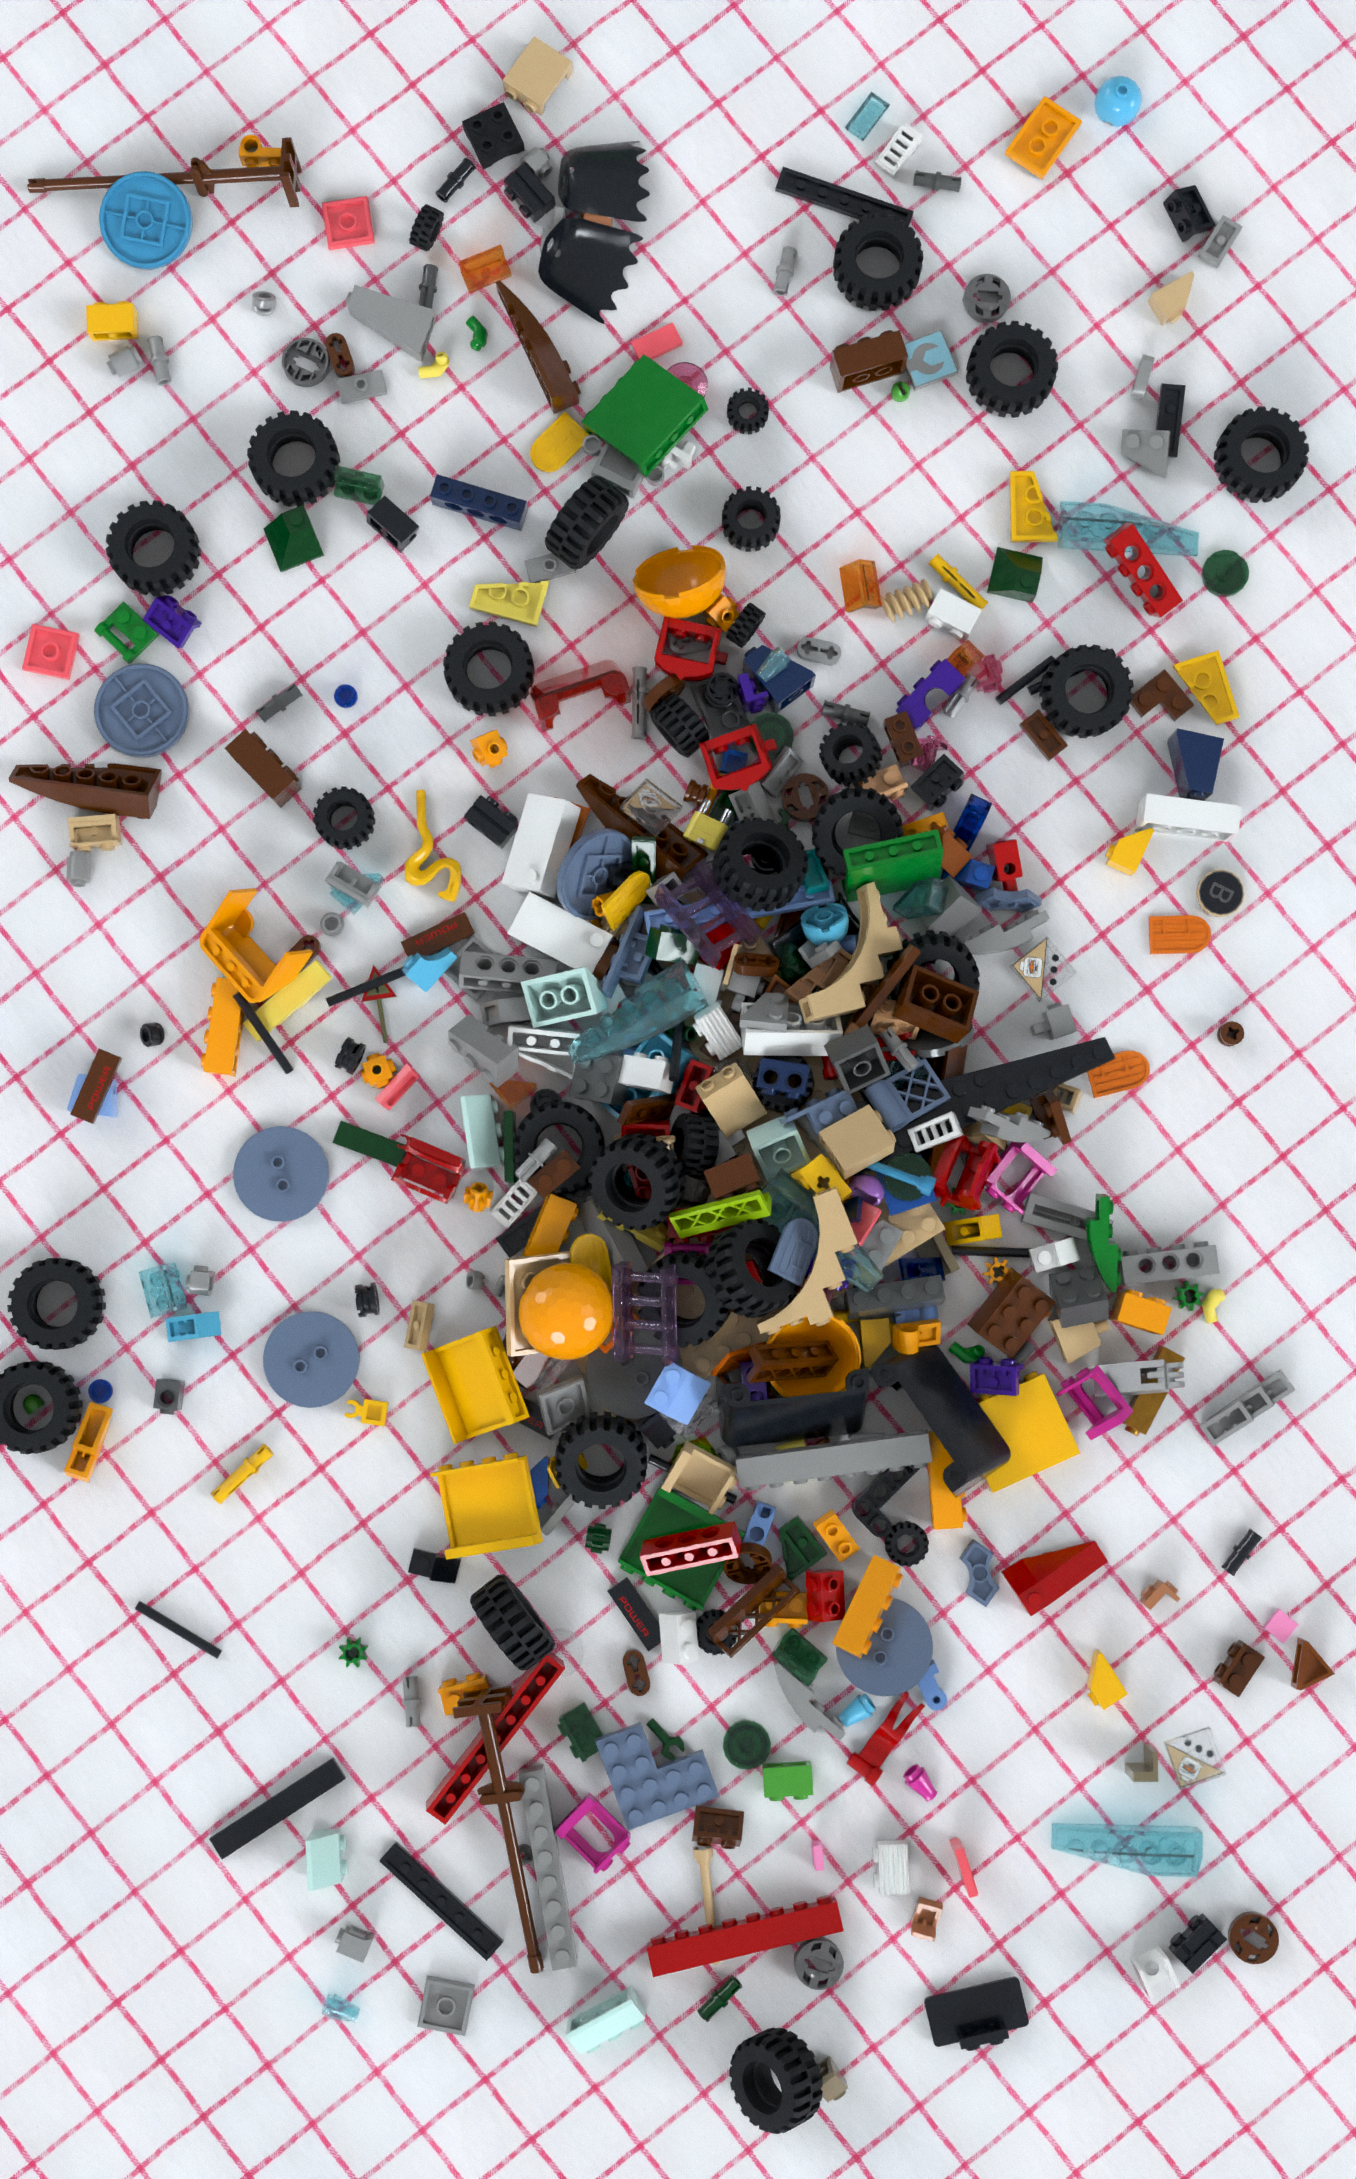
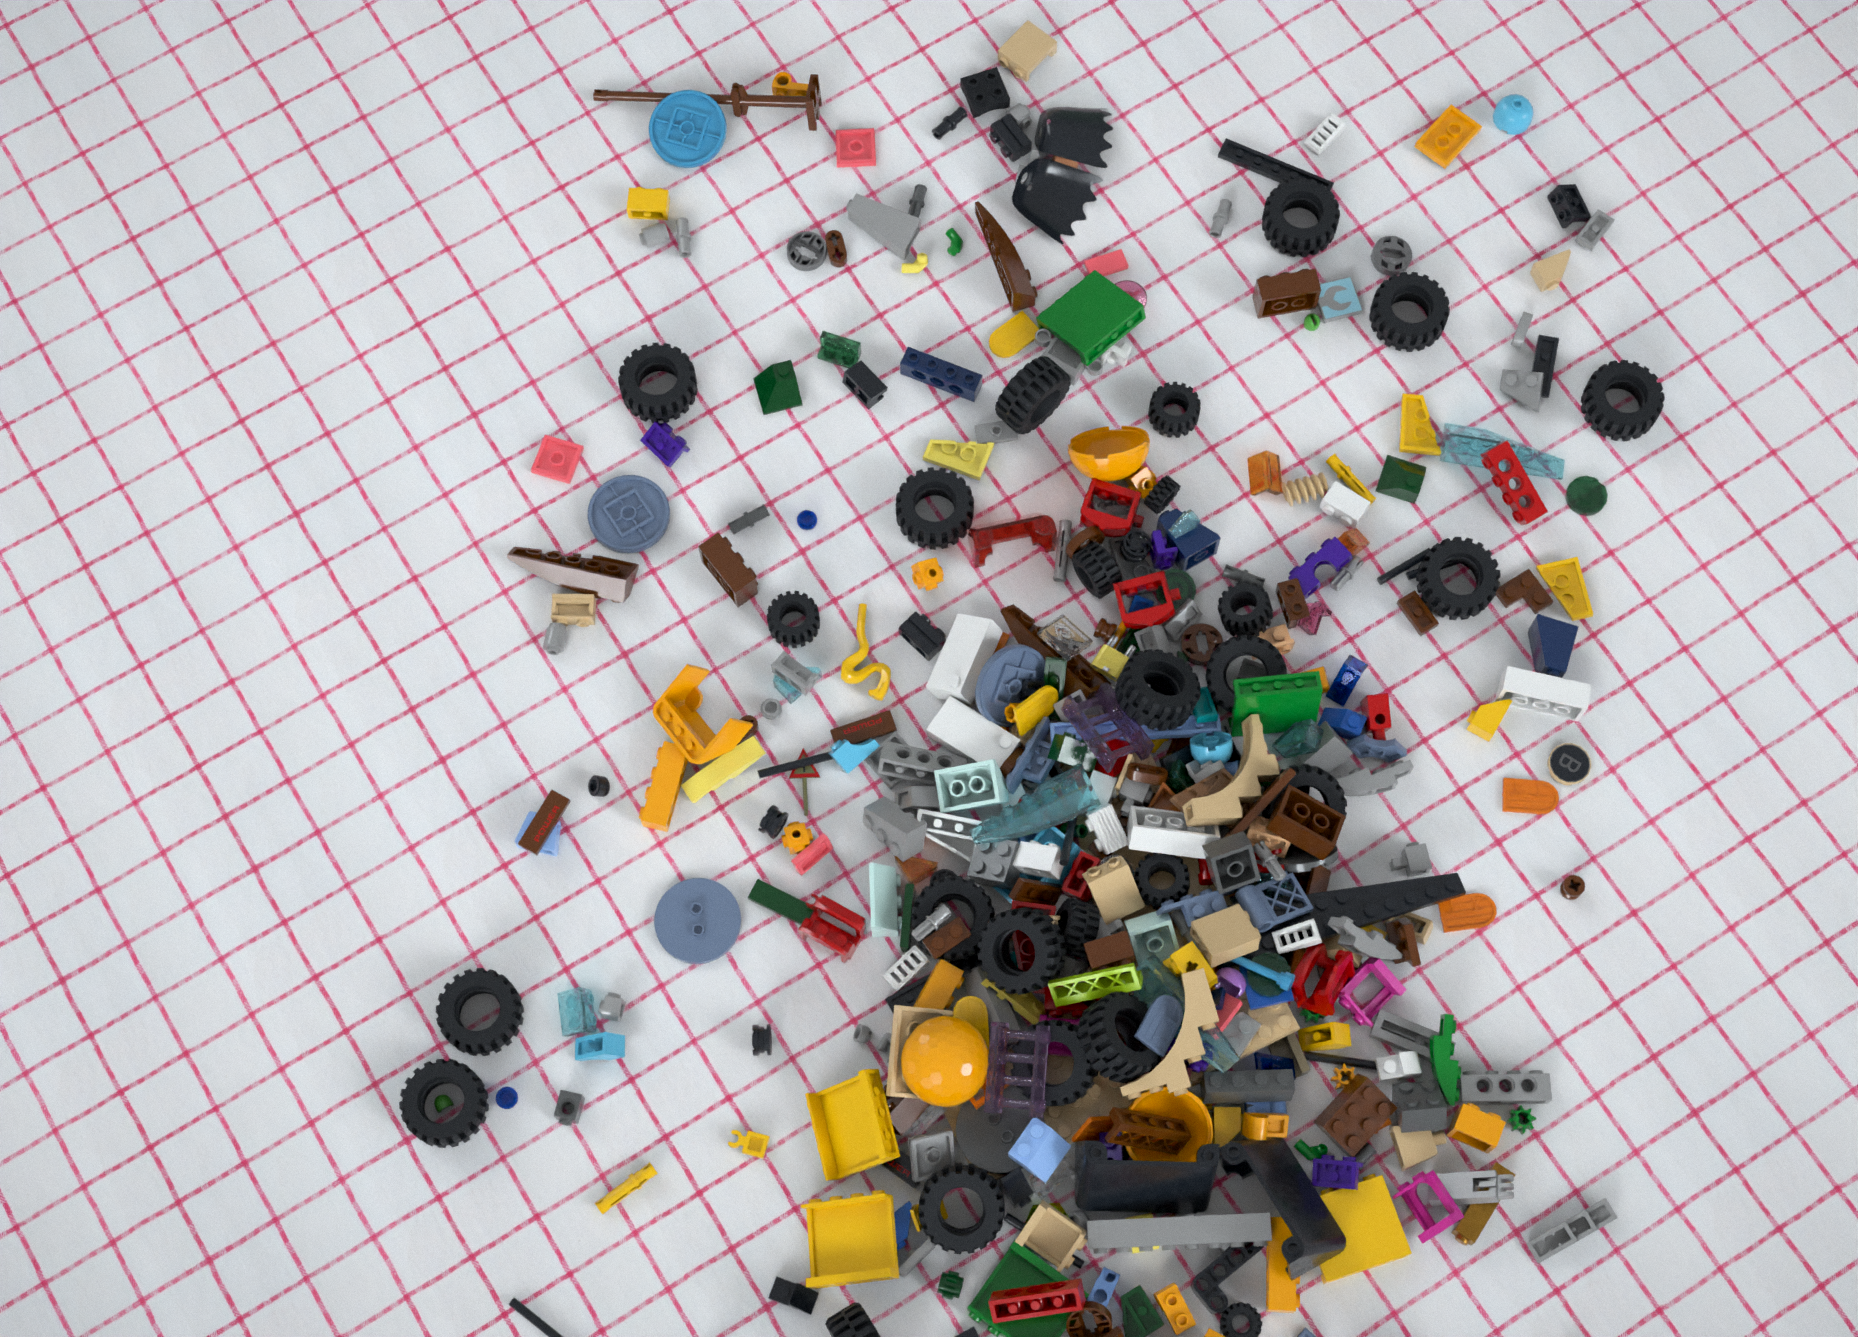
camera: 10 degrees right, 15 degrees down
(88, 1442) = (489, 1143): light orange slope -> none
(132, 627) = (630, 447): green plate -> none
(263, 1033) = (698, 793): black bar -> none
(265, 301) = (777, 199): light grey tile -> none
(280, 432) = (787, 300): black tyre -> none
(311, 1359) = (703, 1090): sand blue plate -> none
(361, 386) = (851, 274): light grey plate -> none
(419, 1325) = (806, 1069): tan plate -> none
(426, 227) = (921, 155): black tyre -> none
(477, 1197) = (873, 958): light orange gear -> none
(484, 269) = (966, 192): clear orange panel -> none
(747, 397) = (1175, 334): black tyre -> none
(767, 1013) = (1153, 814): light grey wing -> none
(785, 1071) = (1165, 866): dark blue brick -> none
(819, 645) = (1224, 524): light grey beam -> none
(867, 116) = (1300, 107): clear light blue tile -> none
(937, 181) = (1355, 161): dark grey pin -> none
(938, 782) = (1321, 642): black bracket -> none
(955, 852) = (1331, 700): dark orange slope -> none
(993, 672) = (1376, 556): clear pink bracket -> none
(1043, 969) = (1404, 813): tile -> none
(1209, 1304) = (1541, 1130): light yellow arm -> none

